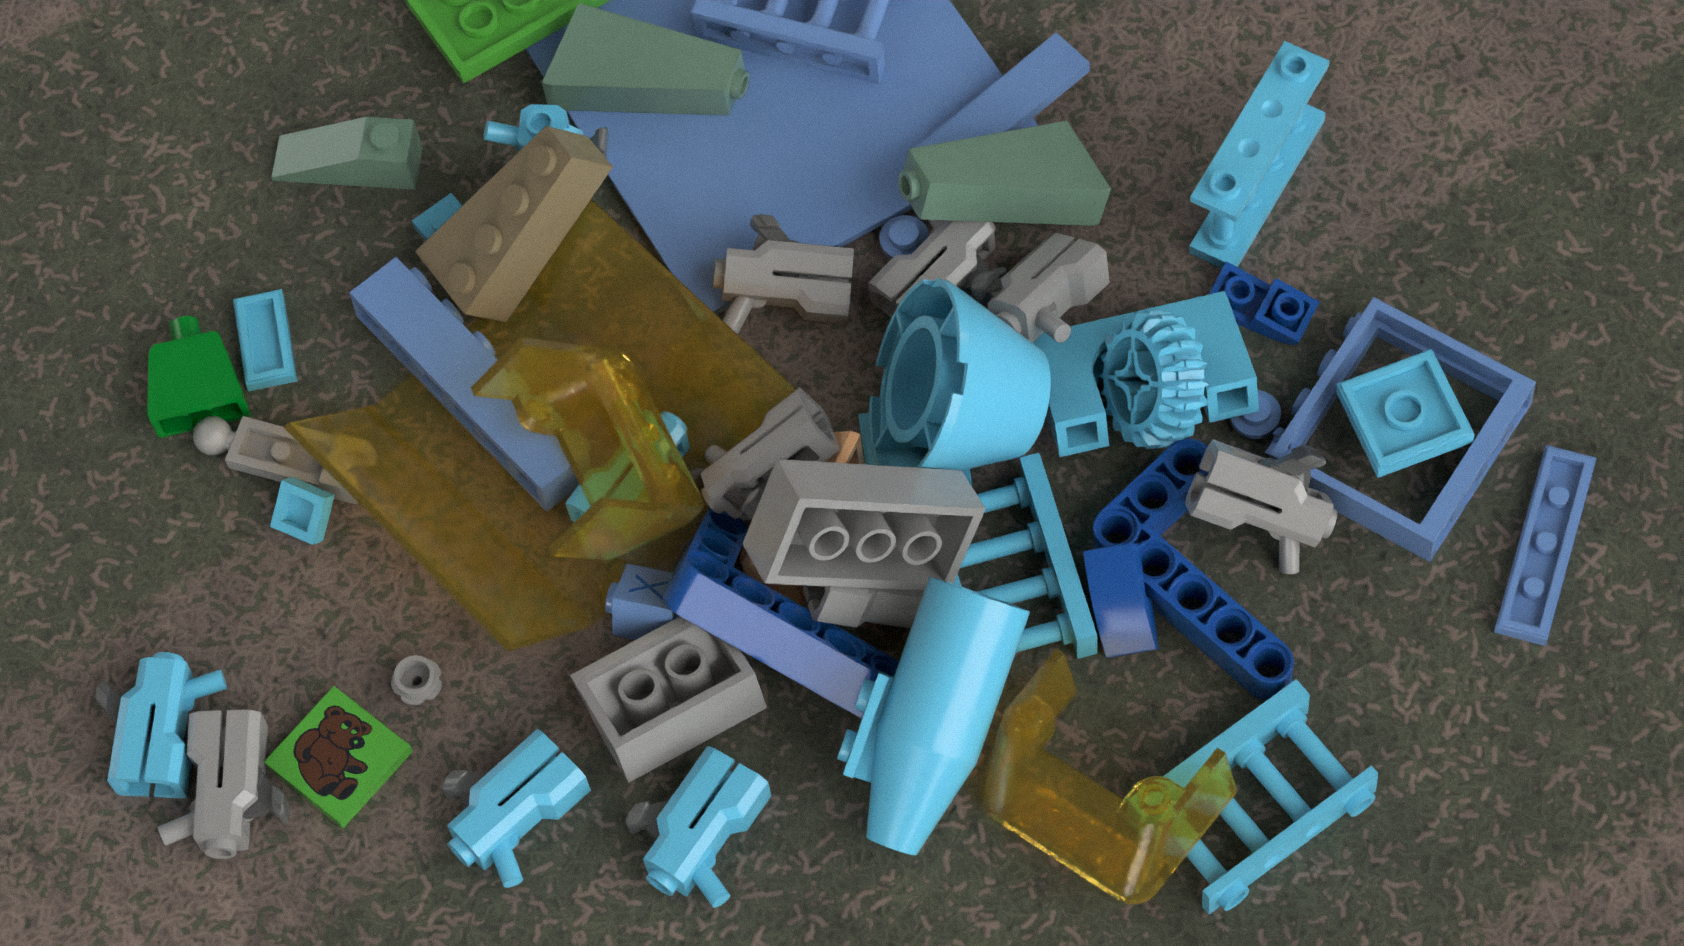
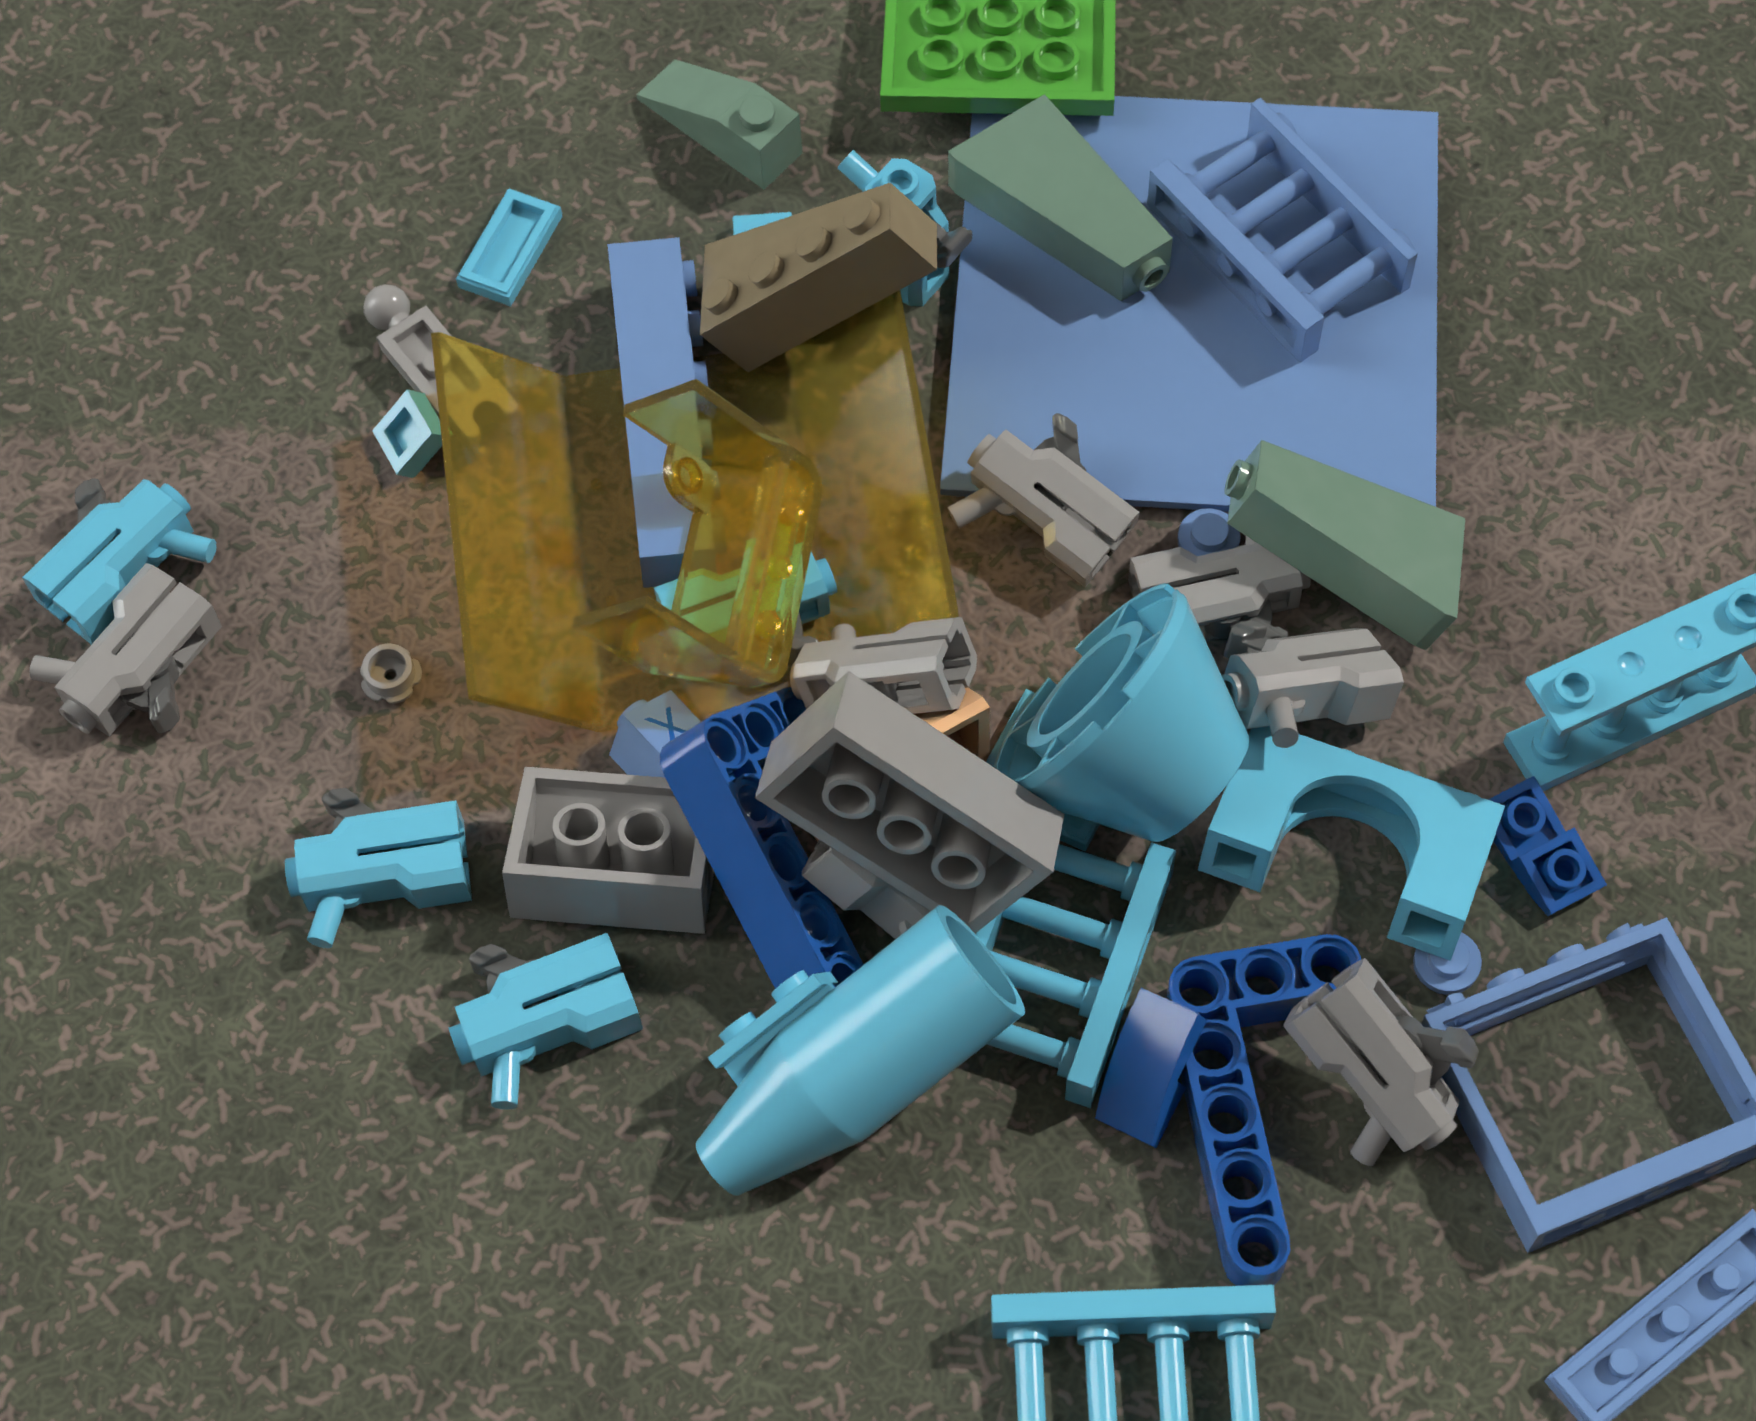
camera: 30 degrees right, 0 degrees up
(191, 380) = (407, 241): green torso -> none
(338, 757) = (259, 701): tile -> none
(1017, 94) = (1436, 459): medium blue tile -> none
(1111, 841) = (950, 1342): clear yellow windscreen -> none
(1153, 378) = (1354, 851): medium azure gear -> none
(1404, 413) = (1609, 1069): medium azure tile -> none

